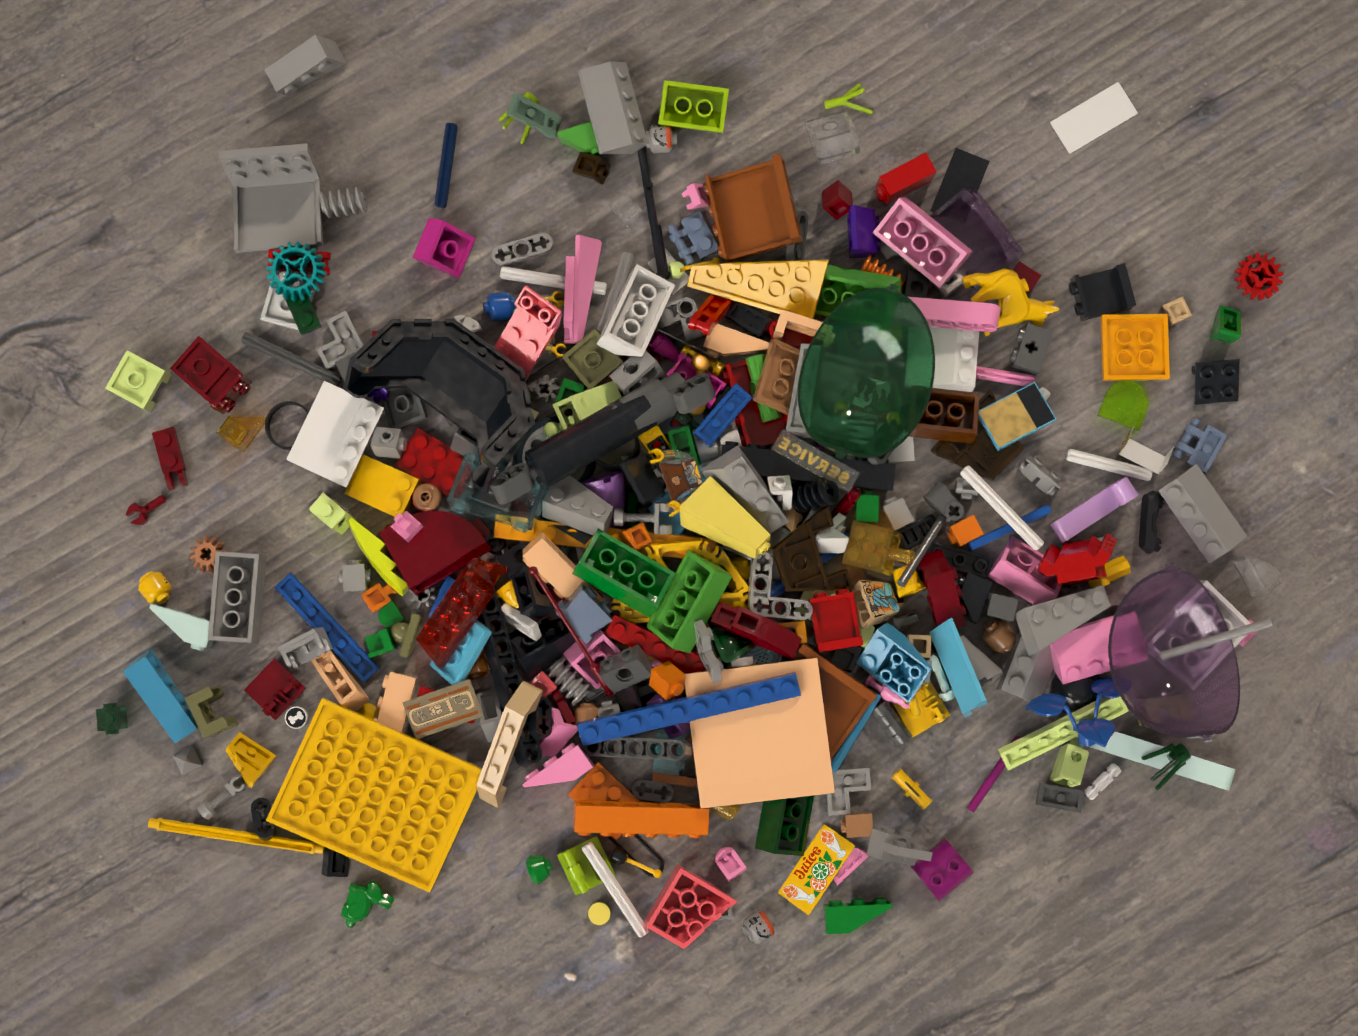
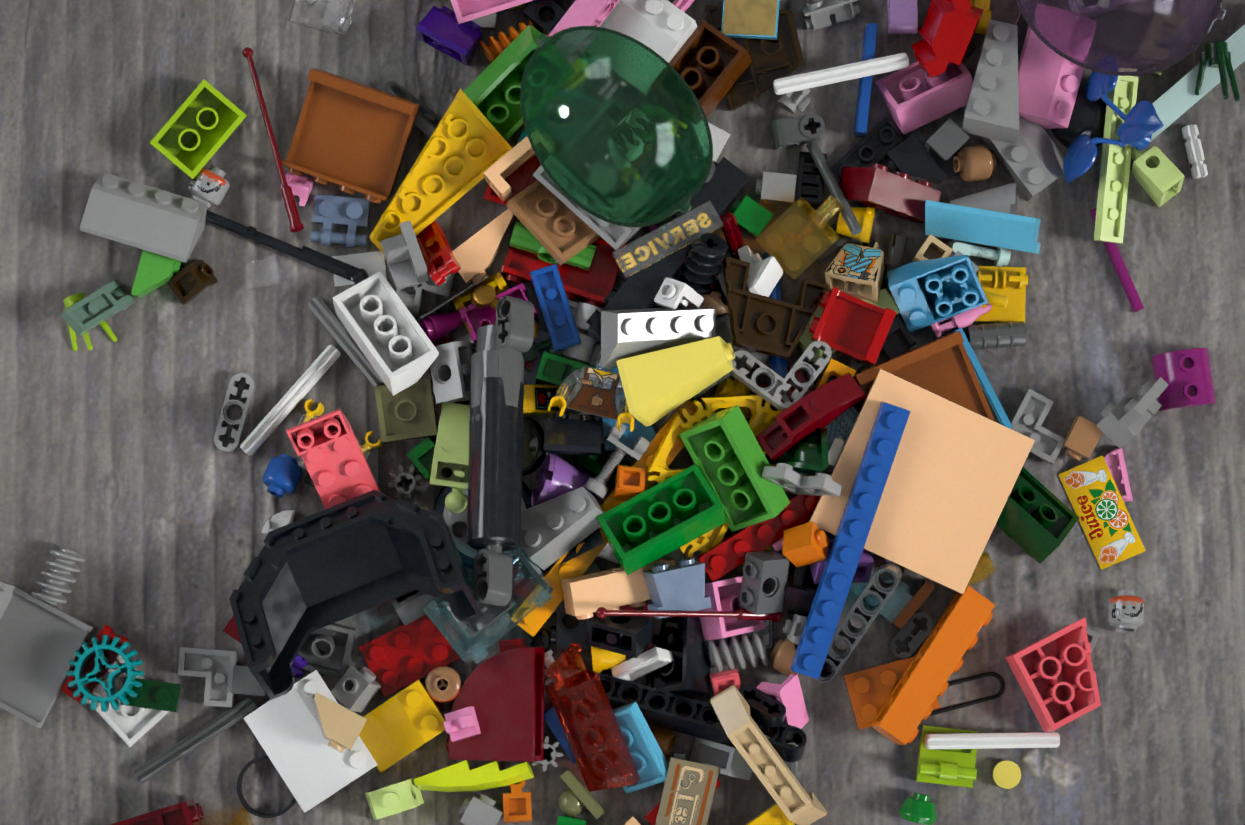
camera: 65 degrees left, 0 degrees up
(354, 444) = (338, 723): none -> tan slope
(390, 615) = (545, 803): green tile -> none
(444, 247) = (178, 496): dark pink slope -> none
(446, 165) = (88, 438): dark blue axle -> none
(563, 707) = (760, 675): dark red plate -> none
(566, 768) = (830, 713): bright pink slope -> none
(579, 285) = (316, 375): bright pink wedge -> none
(620, 857) = (960, 714): hinge -> none
(677, 269) = (364, 257): yellowish green hinge -> none
(686, 192) = (286, 191): none -> dark red piece
(693, 295) = (405, 258): none -> light grey panel
(729, 863) = (1039, 601): bright pink plate -> none
(748, 319) = (466, 215): black plate -> none
(837, 200) = (396, 39): dark red panel -> none
(847, 917) = (1173, 508): green slope -> none
(900, 778) = (1060, 361): yellow pin -> none
(964, 531) = (840, 129): orange brick -> none
(1060, 797) = (1184, 206): dark grey plate -> none

